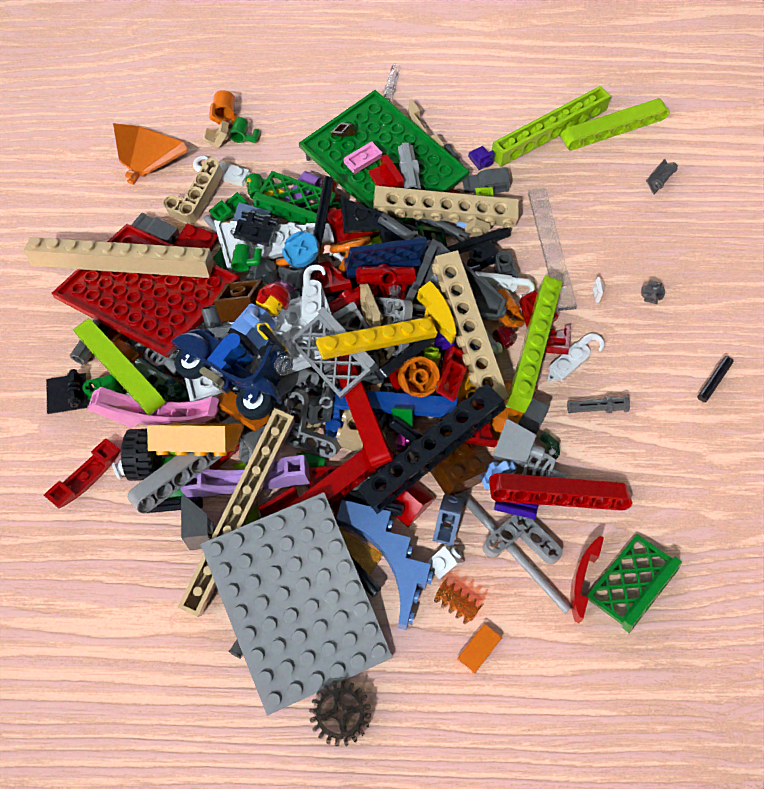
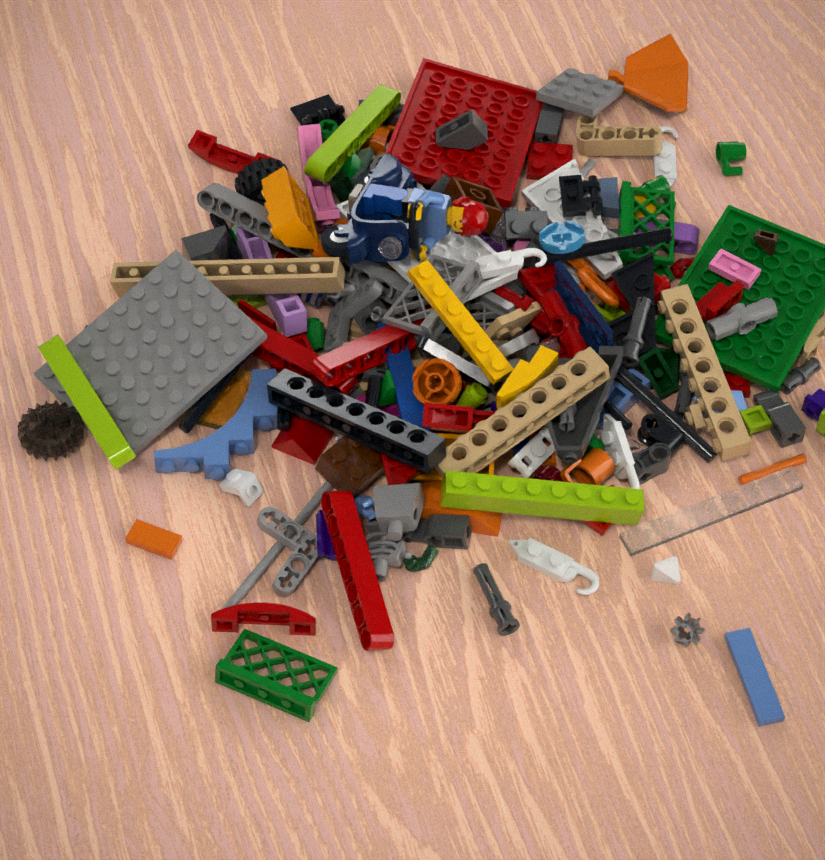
camera: 70 degrees right, 10 degrees down
(119, 257) = (488, 95): tan brick -> none
(140, 200) = (580, 92): none -> light grey plate
(152, 377) = (352, 165): none -> green slope
(157, 285) = (462, 132): none -> dark grey slope
(216, 137) = (709, 133): tan bracket -> none
(223, 108) = (753, 126): orange piece -> none
(227, 210) = (608, 169): green slope -> none
(241, 258) = (534, 196): green piece -> none
(327, 671) = (87, 402): none -> lime beam
(449, 512) = (288, 469): sand blue torso -> none
(457, 602) = (197, 502): clear orange piece -> none
(526, 202) = (762, 472): none -> orange bar
(558, 341) = (568, 536): red wing -> none
(691, 268) = (754, 677): none -> medium blue tile
(715, 379) = (587, 726): black axle -> none

